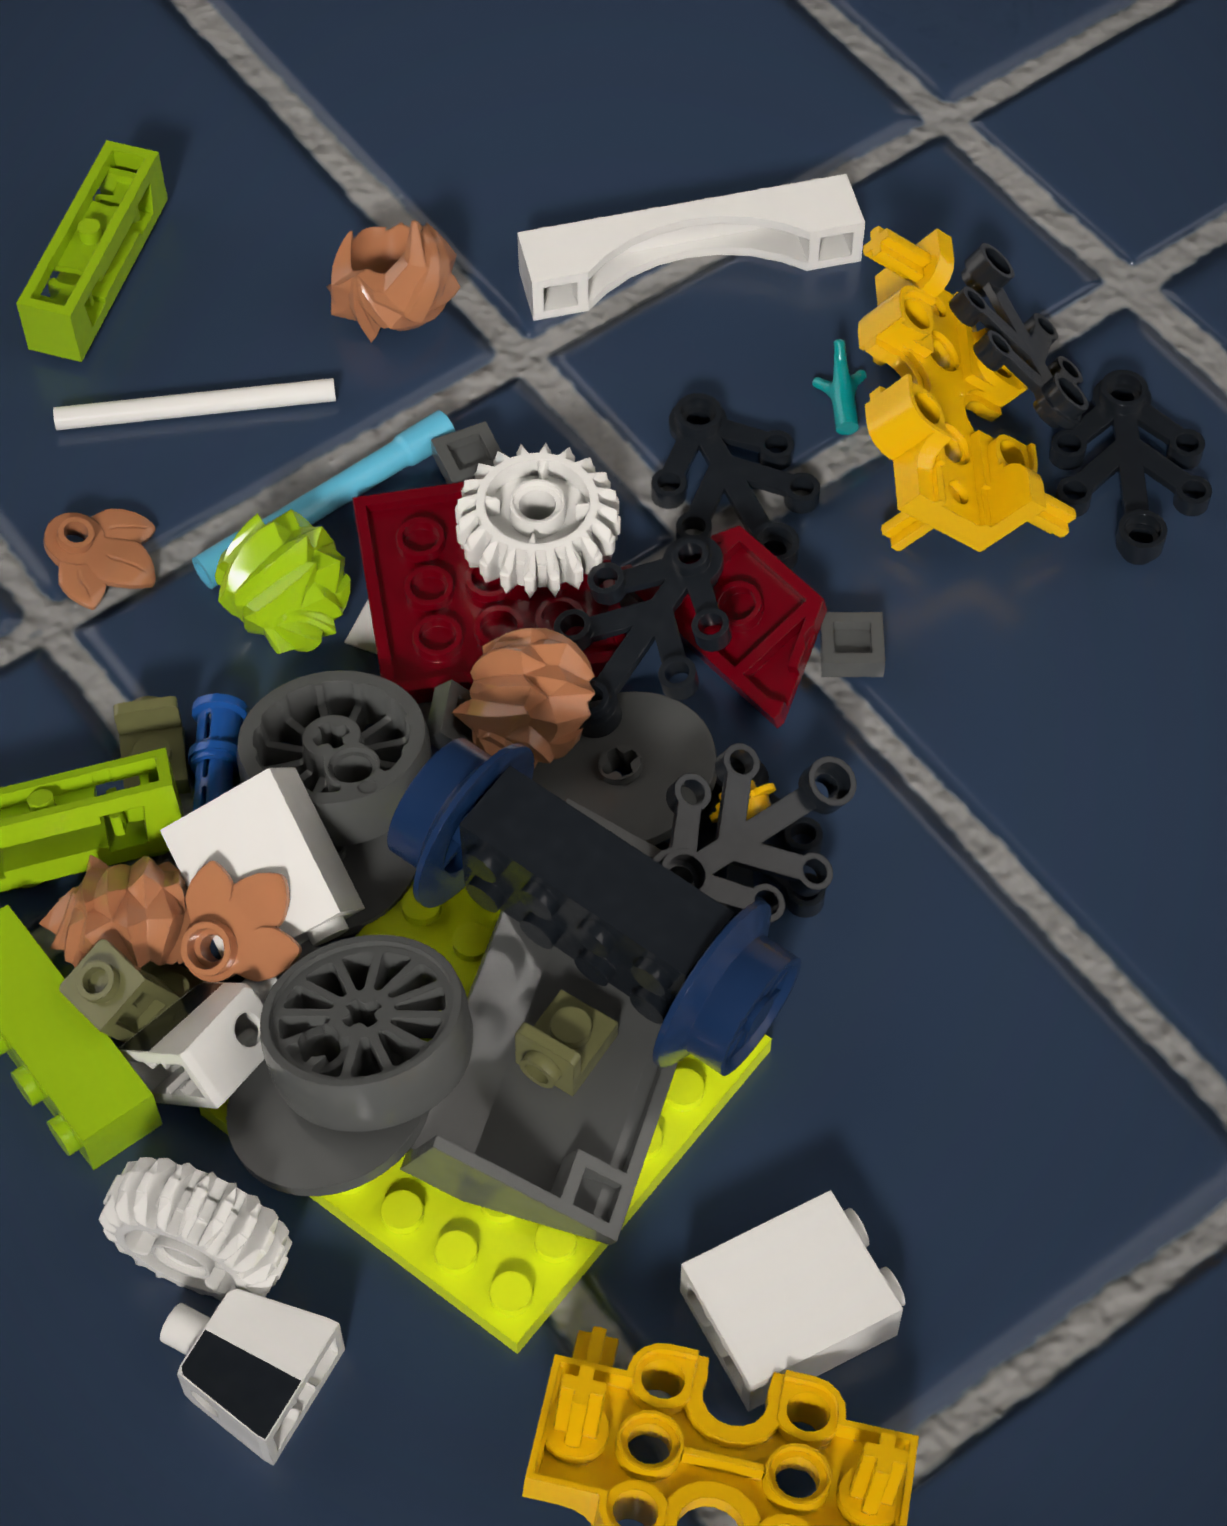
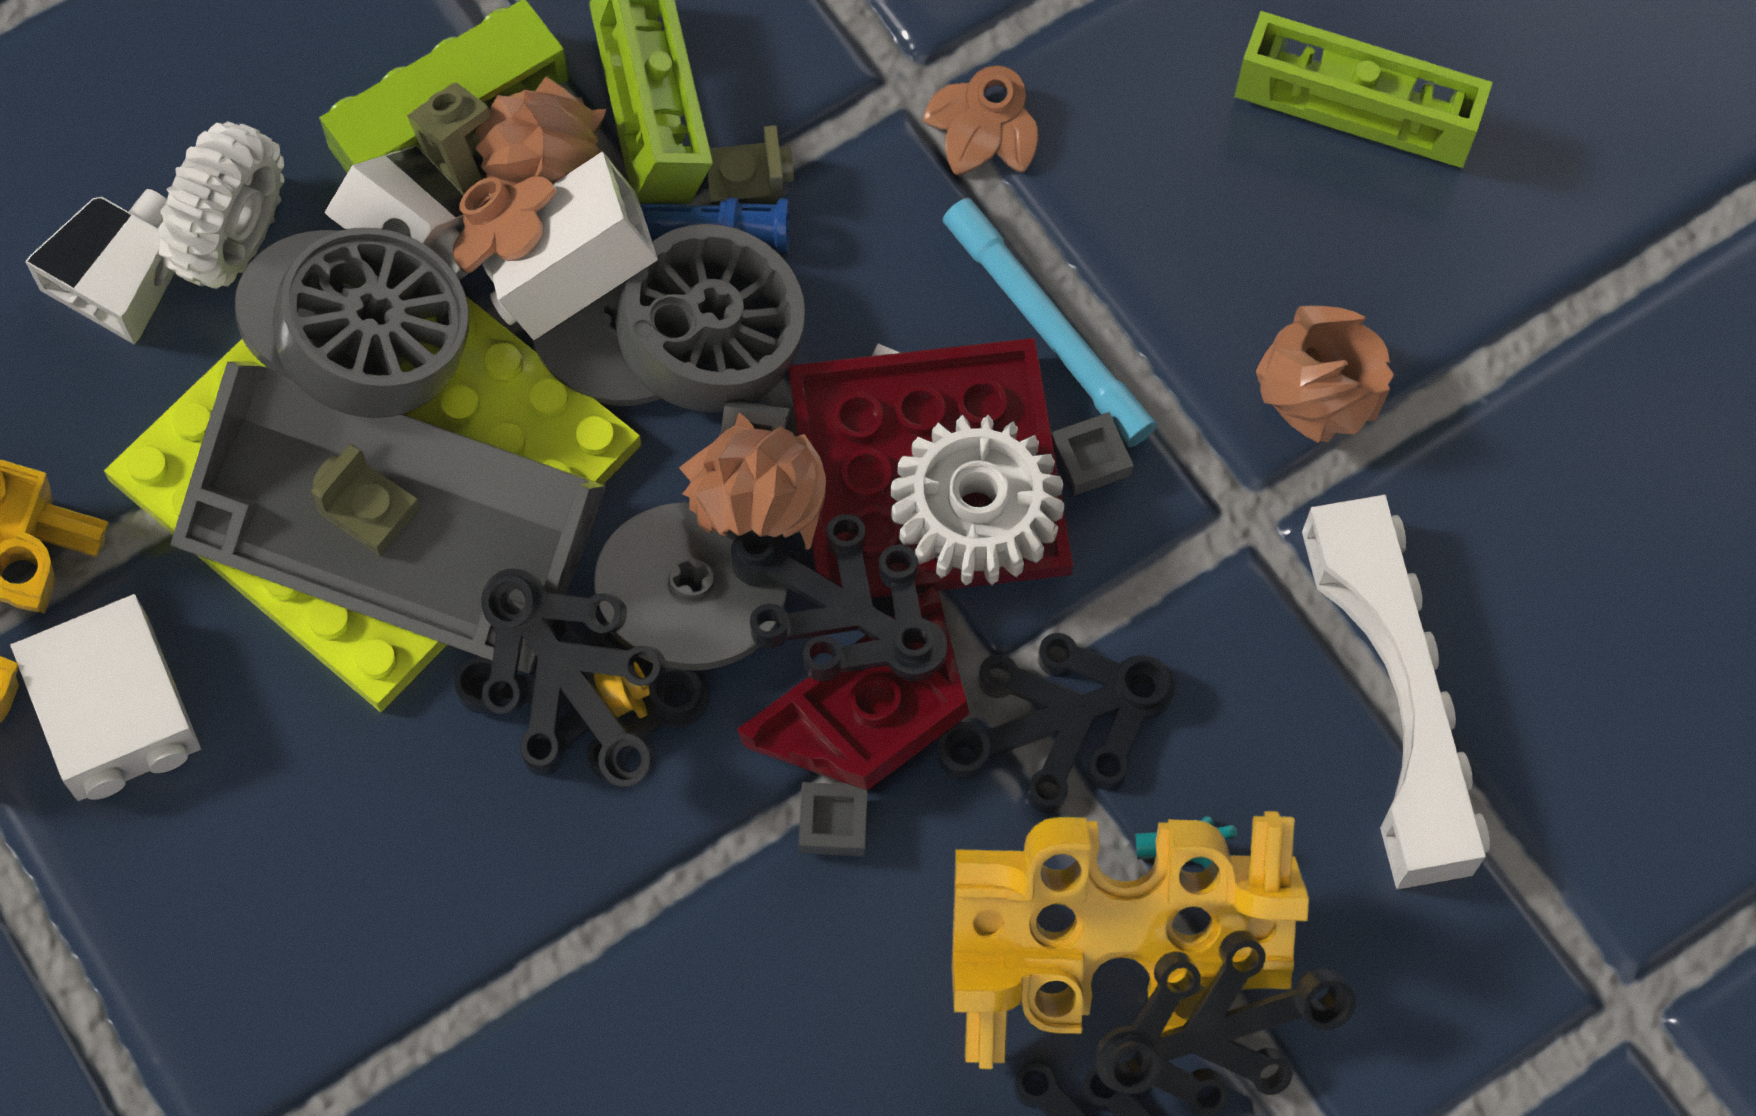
camera: 90 degrees right, 10 degrees up
(194, 404) = (1178, 204): white axle -> none
(284, 581) = (917, 271): lime hair -> none
(596, 899) = (467, 506): brick -> none

